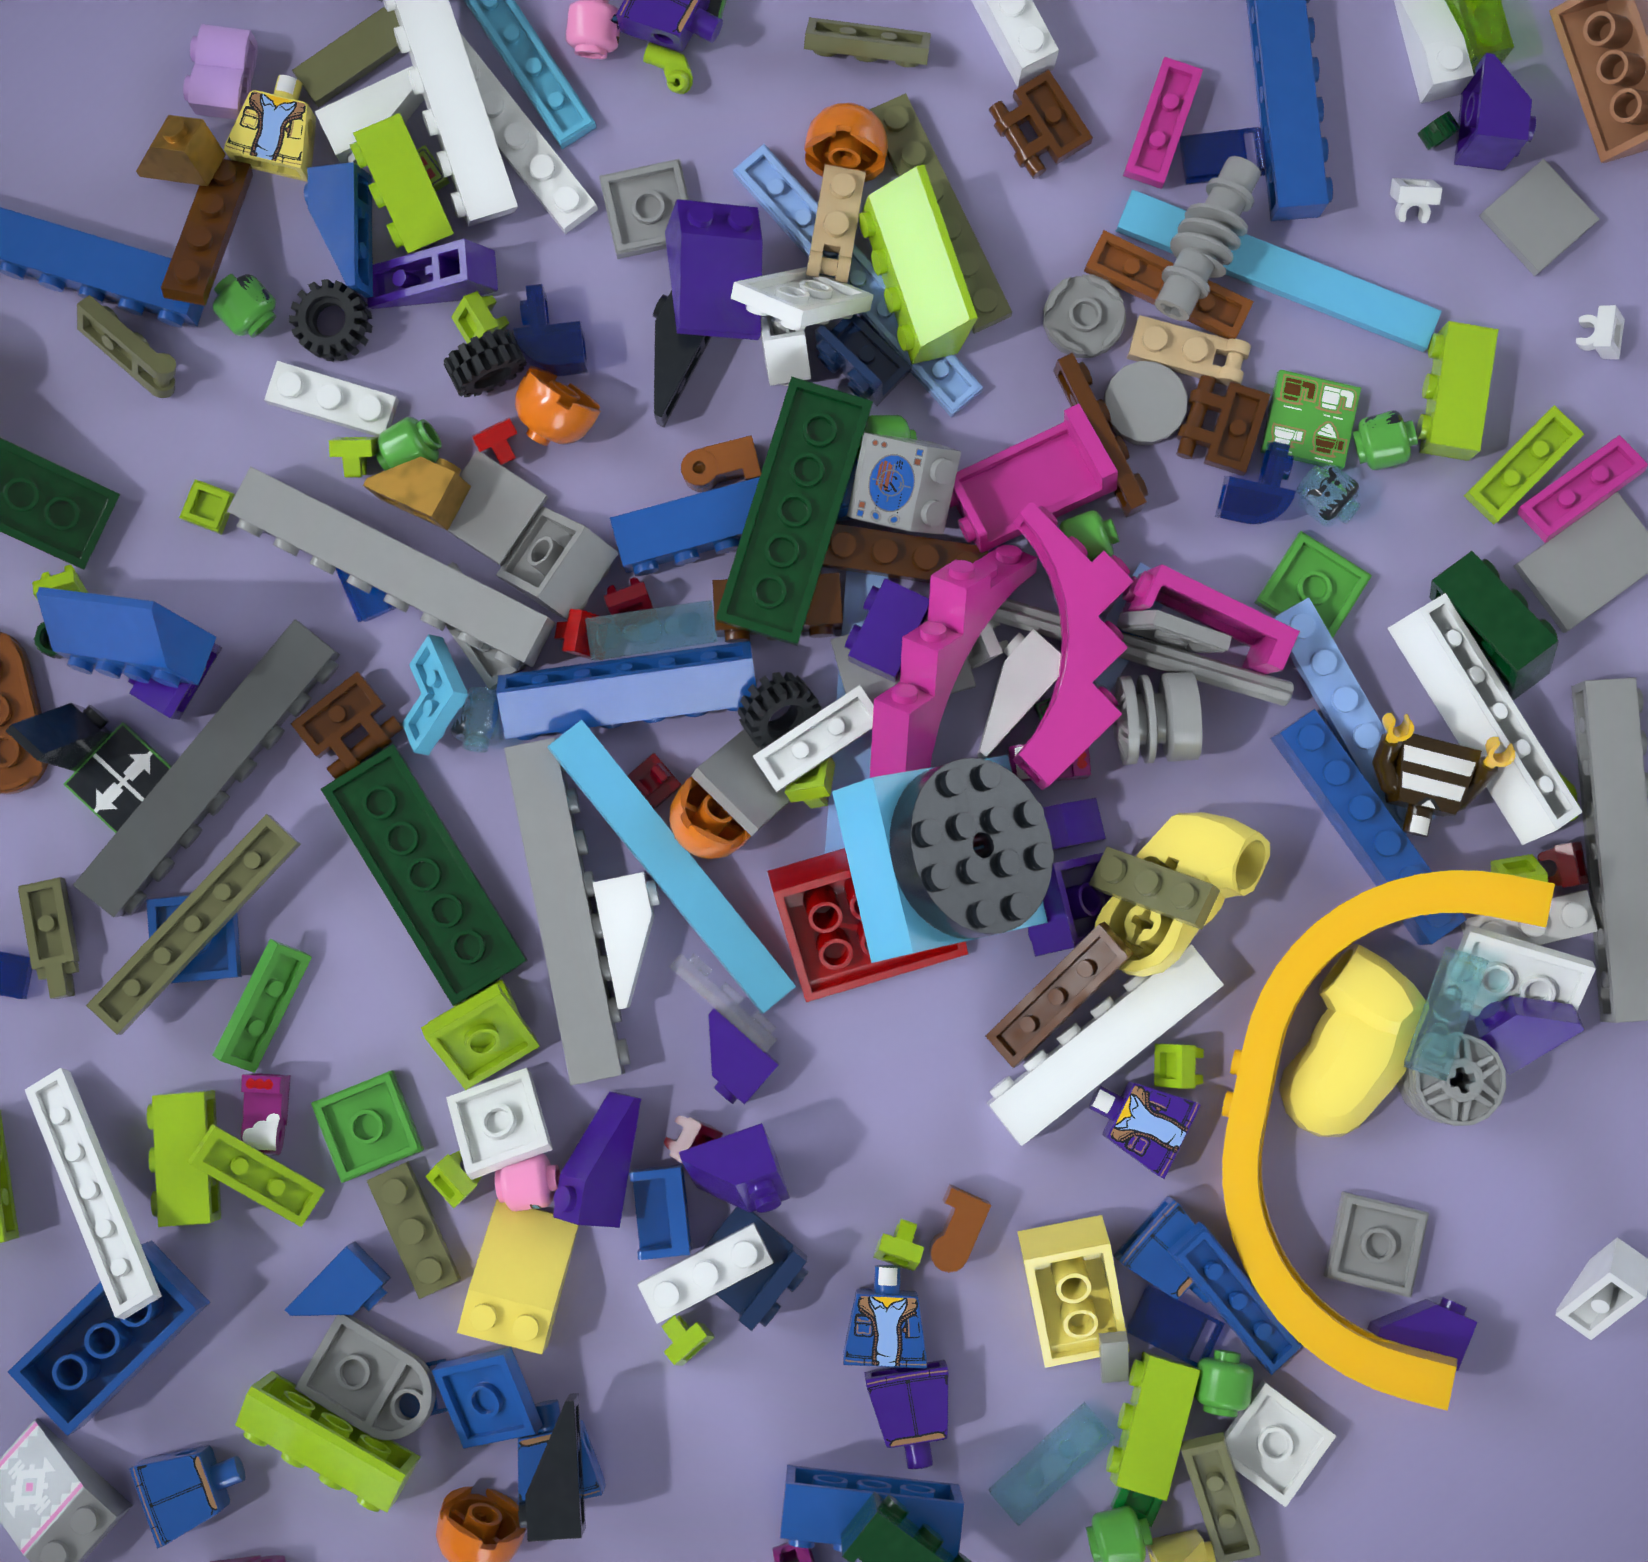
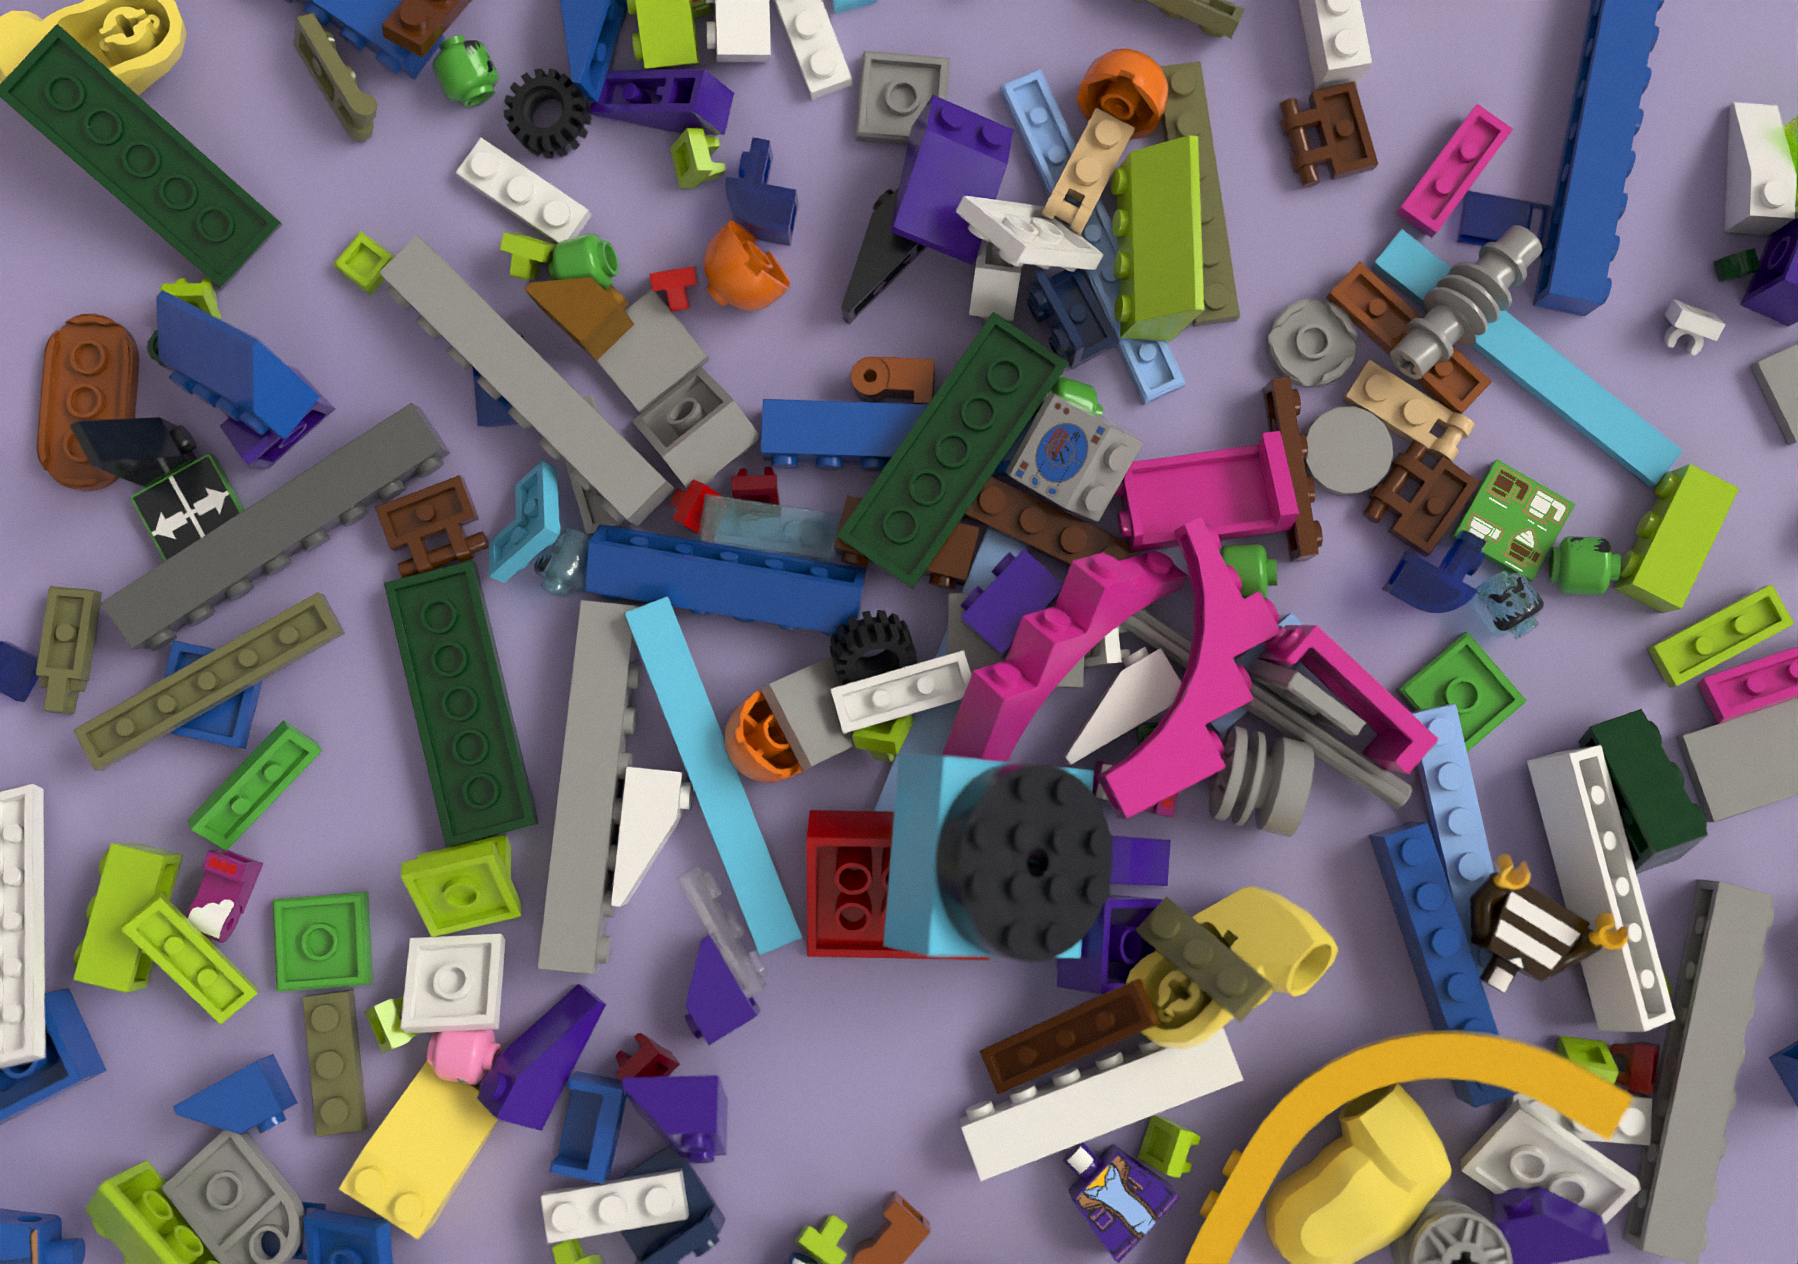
camera: 20 degrees right, 0 degrees up
(485, 363) = (686, 202): black tyre -> none
(654, 780) = (723, 681): dark red tile -> none
(1446, 1013) = (1468, 1189): clear light blue plate -> none

